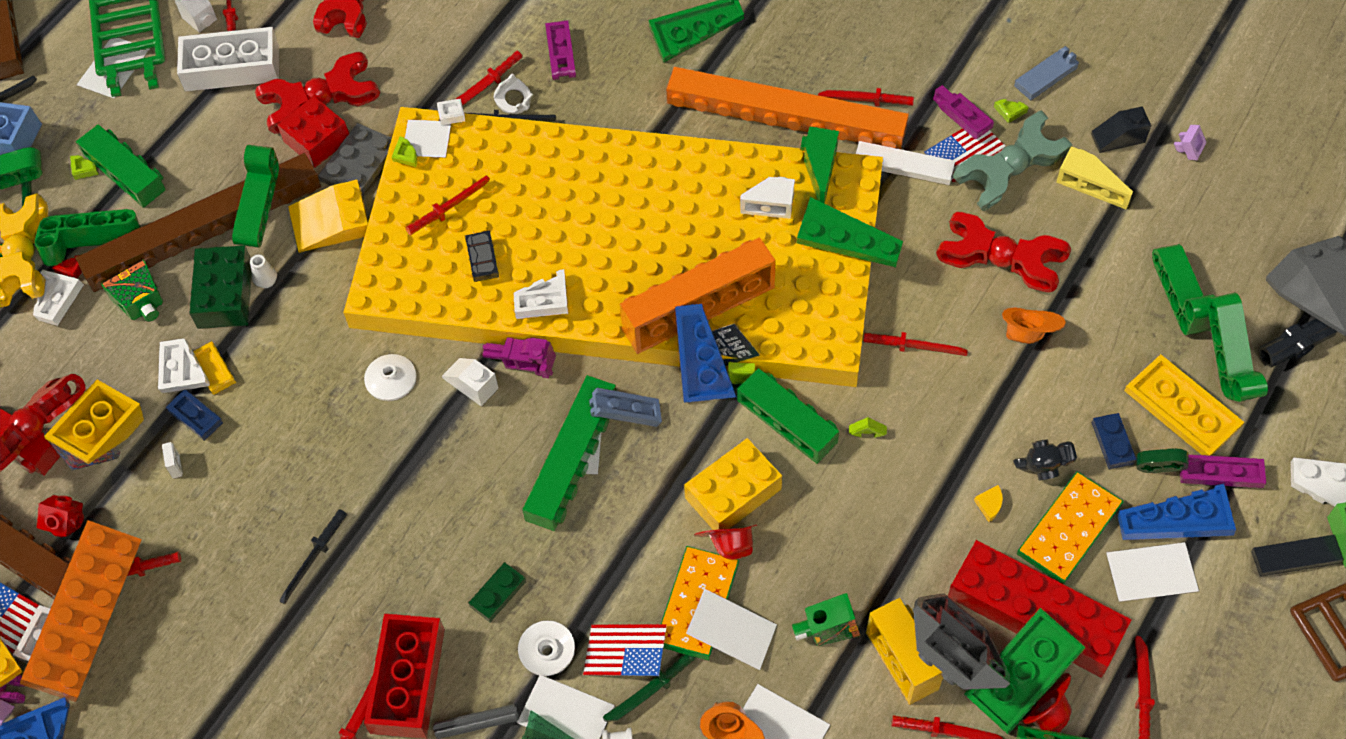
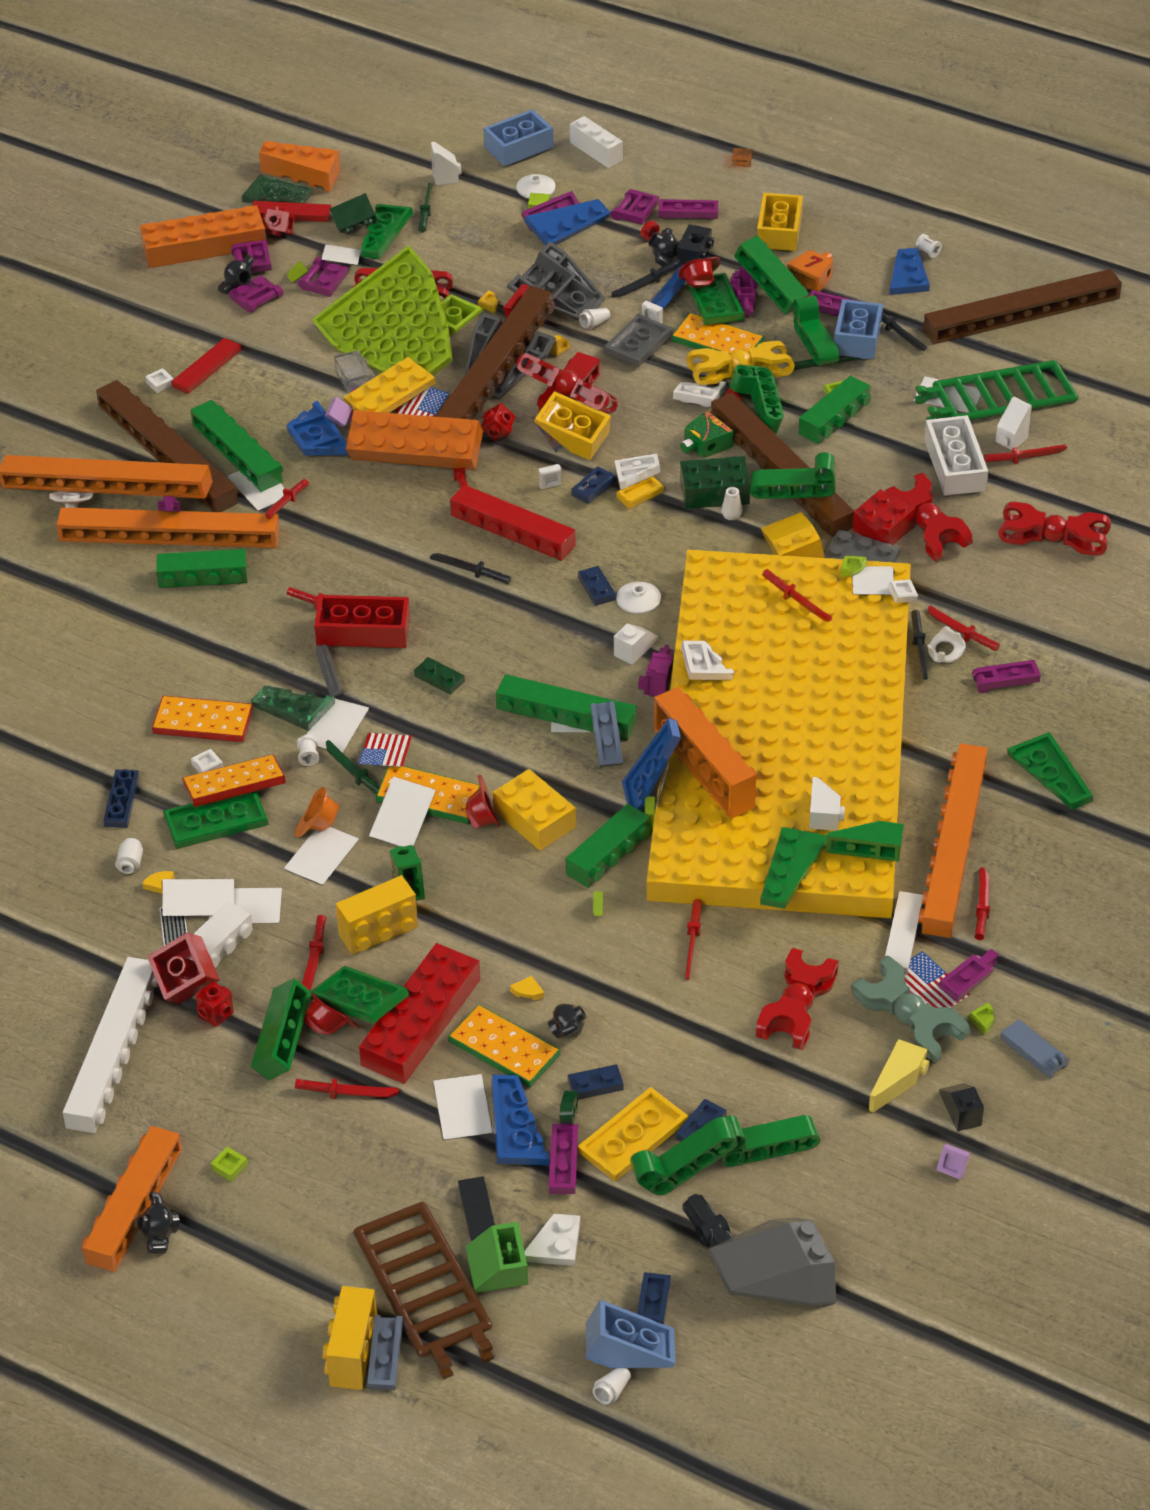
camera: 85 degrees right, 15 degrees down
(246, 505) = (513, 522): none -> red brick
(366, 418) = (596, 585): none -> dark blue plate
(481, 256) = (745, 622): tile -> none
(542, 636) = (387, 703): white dish -> none
(957, 644) = (379, 930): dark grey wedge -> none
(1030, 325) = (715, 1012): orange piece -> none
(1161, 341) = (701, 1116): none -> dark blue plate

